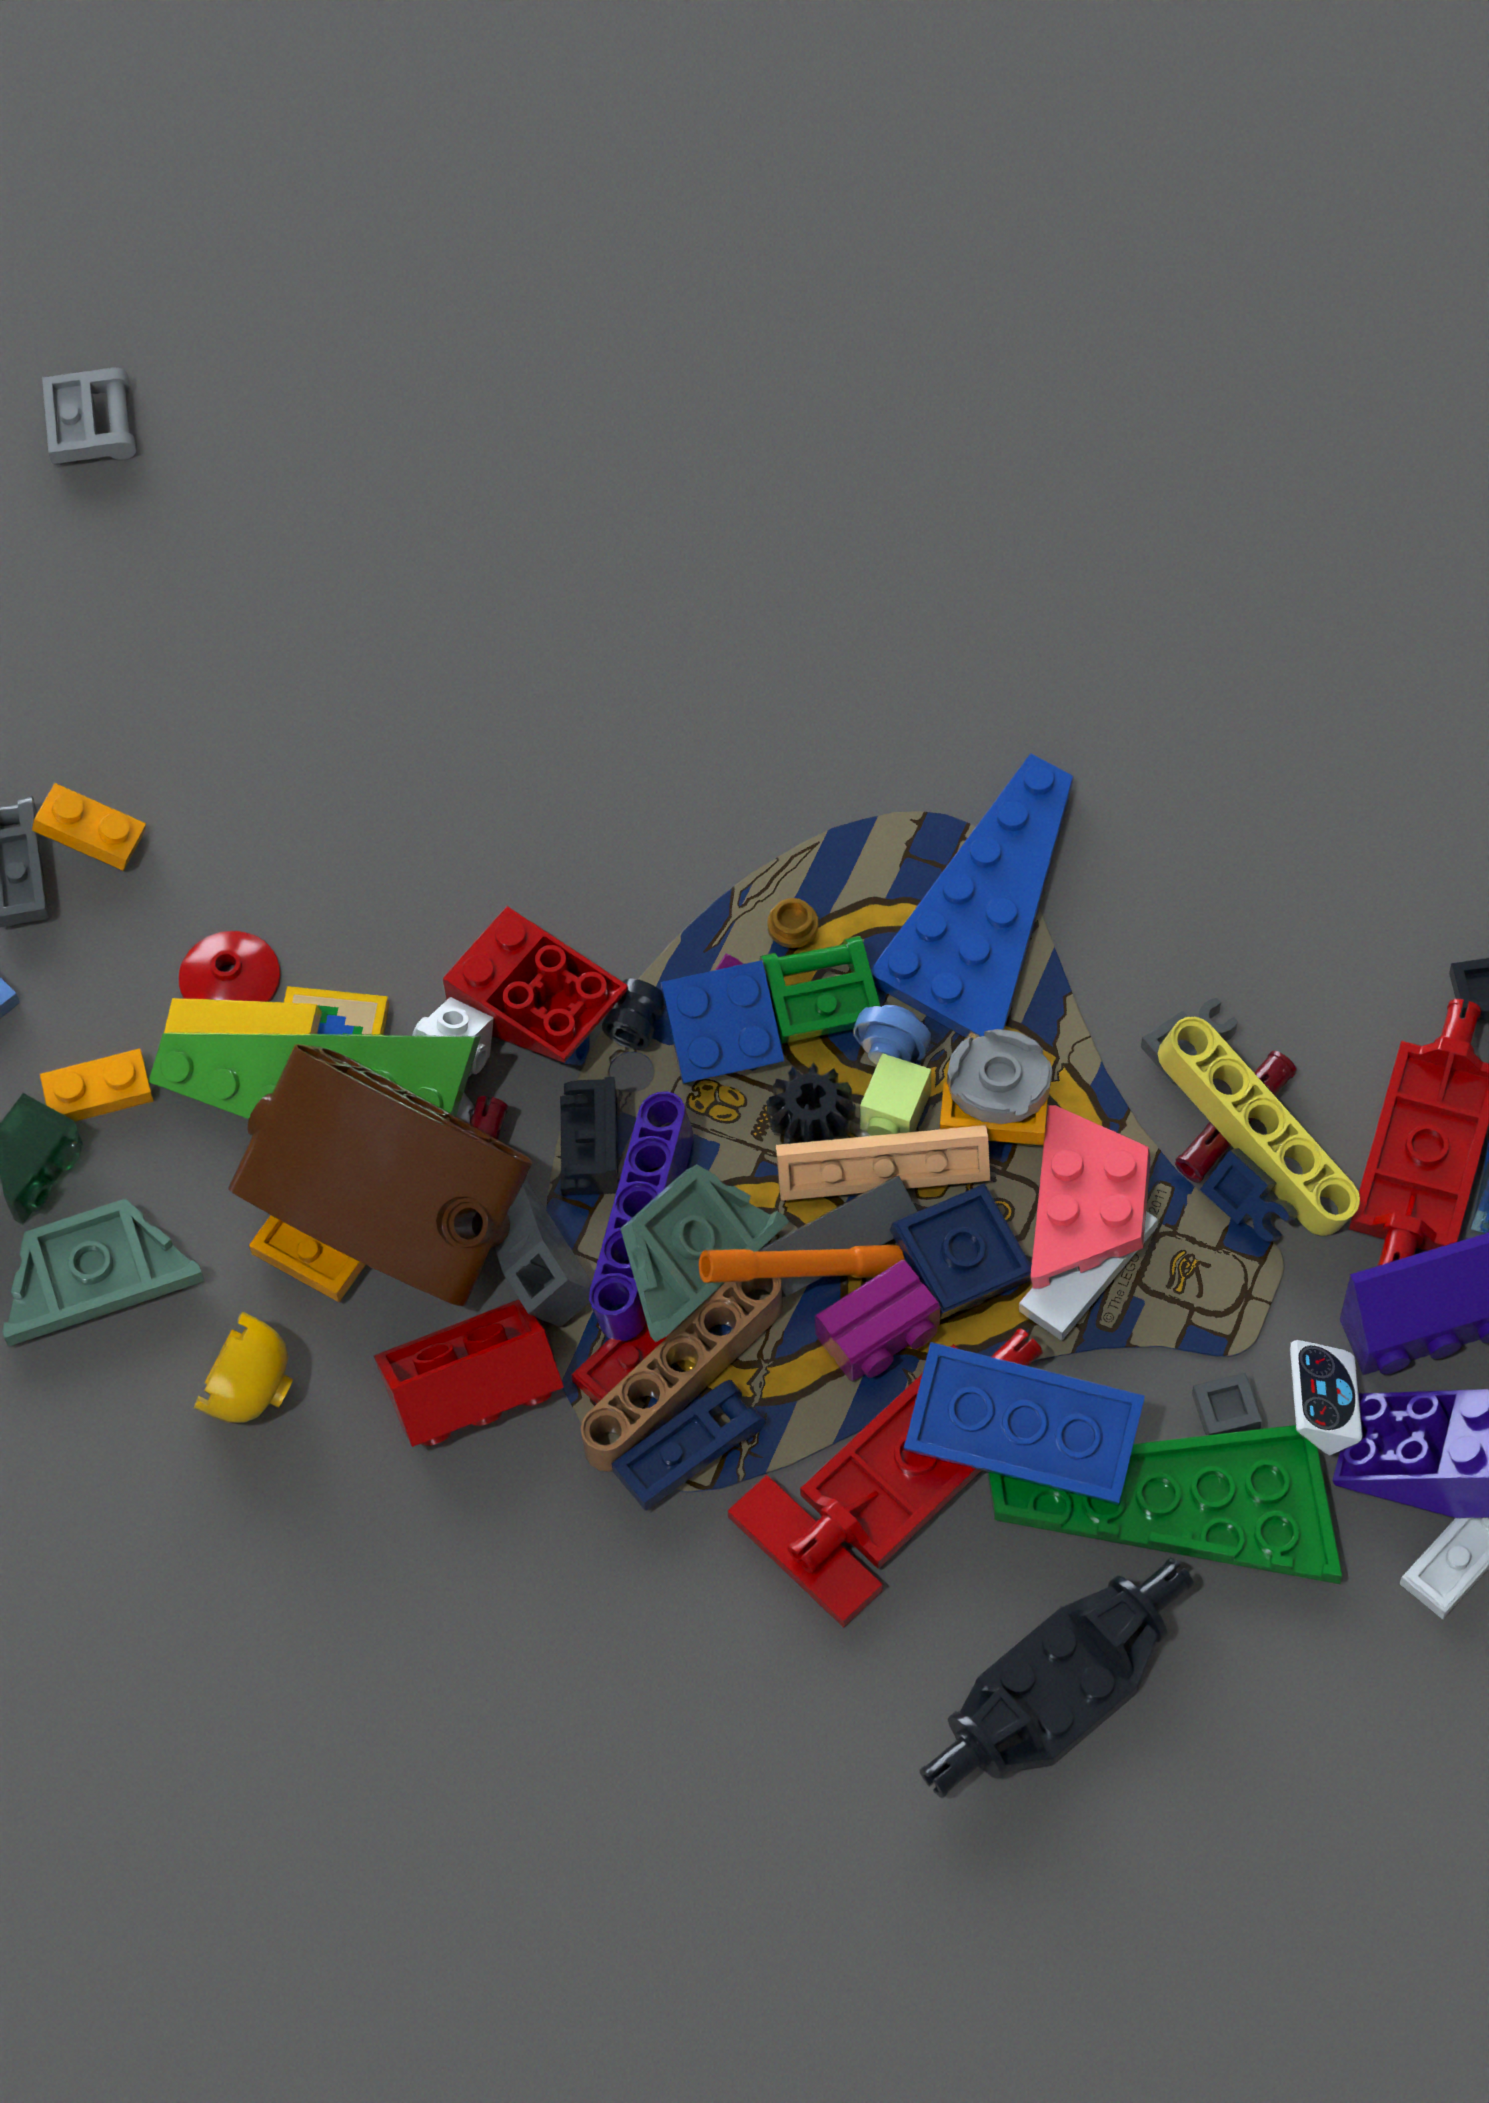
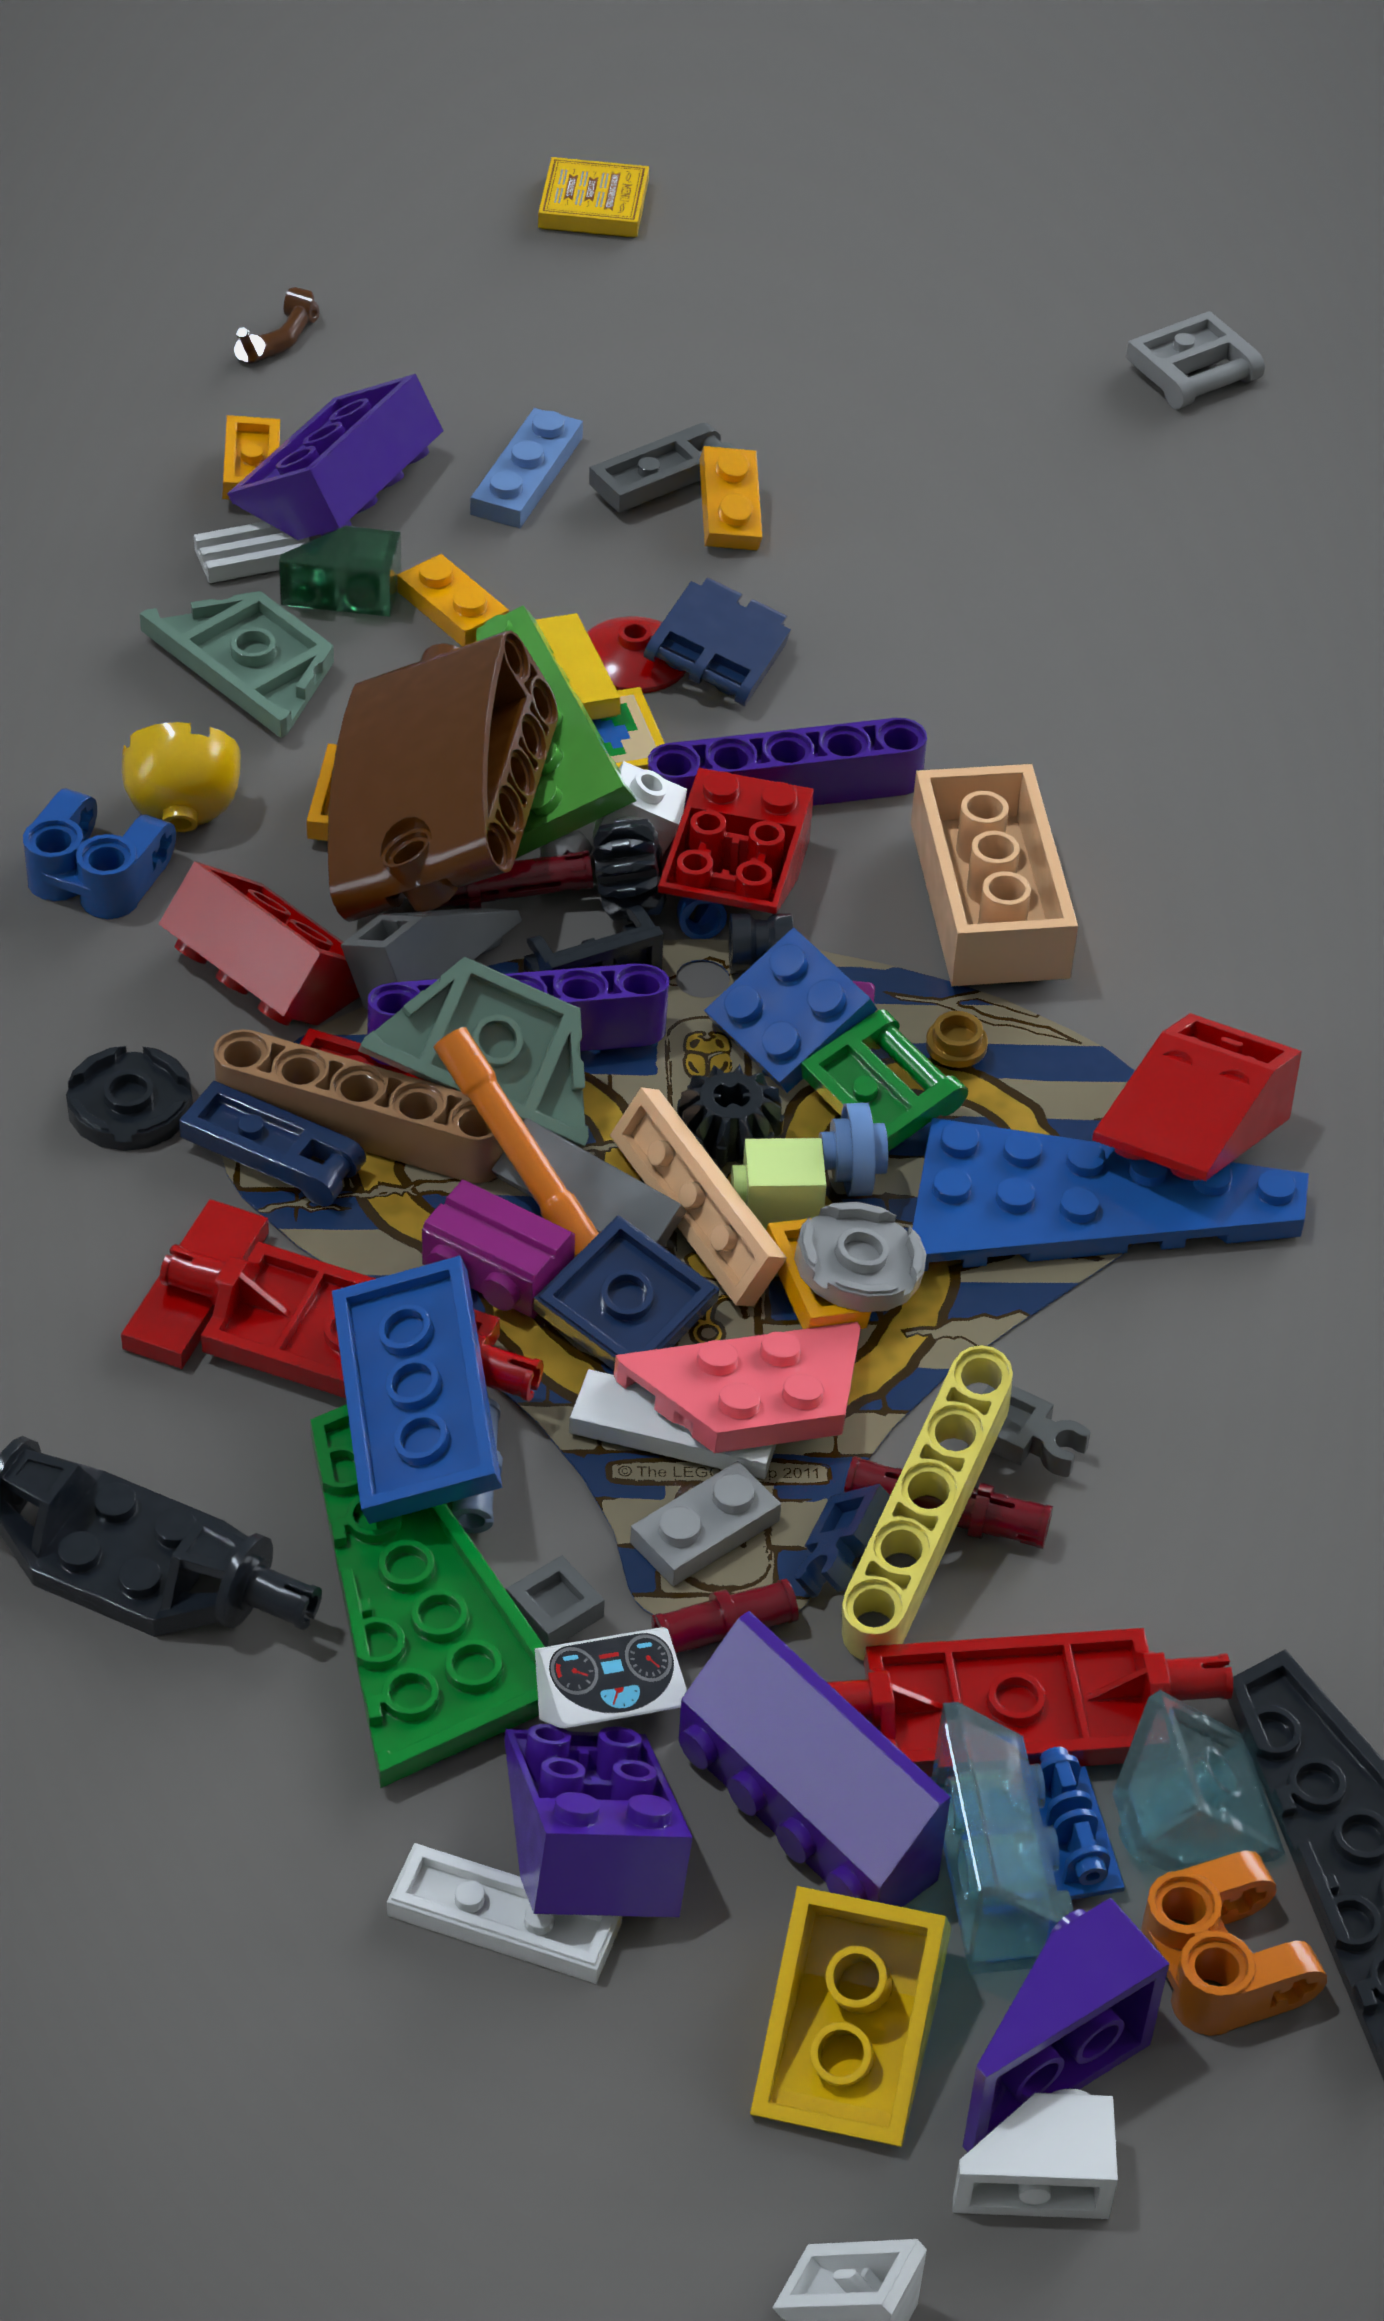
camera: 60 degrees right, 15 degrees down
(265, 903) = (720, 639): none -> dark blue plate
(297, 1480) = (105, 869): none -> blue piece
(441, 897) = (835, 760): none -> dark purple beam
(520, 1073) = (629, 867): none -> black gear
(578, 1536) = (128, 1098): none -> black tile
(643, 822) = (993, 875): none -> light nougat brick
(953, 788) = (1201, 1098): none -> red slope
(1188, 1281) = (705, 1523): none -> light grey plate
(1282, 1299) = (713, 1619): none -> dark red pin

